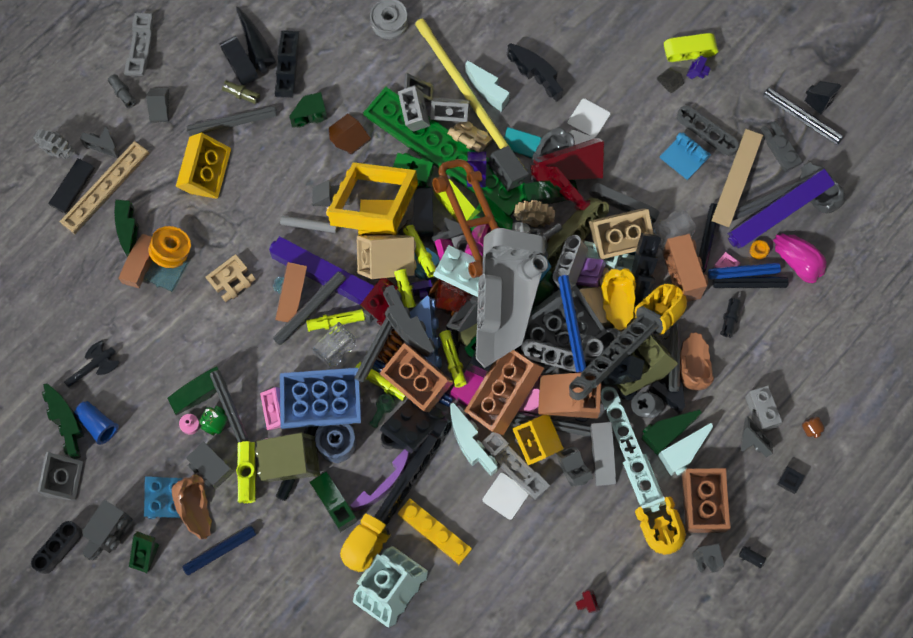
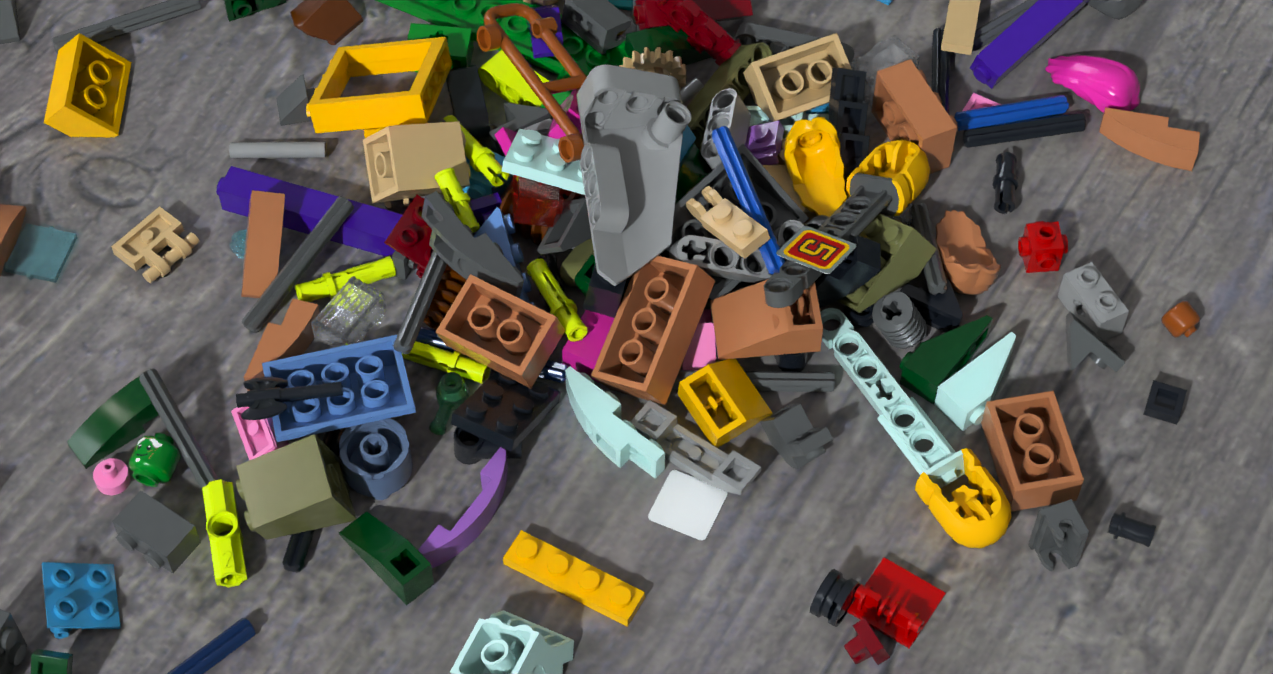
camera: 10 degrees left, 15 degrees down
(160, 246) = (44, 209): light orange wheel -> none
(192, 505) = (132, 596): nougat hair -> none
(279, 399) = (269, 393): none -> black piece
(294, 358) = (284, 340): none -> nougat slope
(368, 537) = (465, 585): piece -> none
(558, 338) = (729, 223): none -> tan hinge
(575, 572) = (834, 597): none -> black wheel
(603, 453) = (841, 408): light grey slope -> none
(605, 363) = (816, 249): none -> sticker
(610, 578) = (896, 602): none -> red hinge
(741, 372) = (1042, 246): none -> red brick
(759, 249) = (1027, 84): light orange tile -> none
(825, 302) = (1151, 137): none -> nougat slope

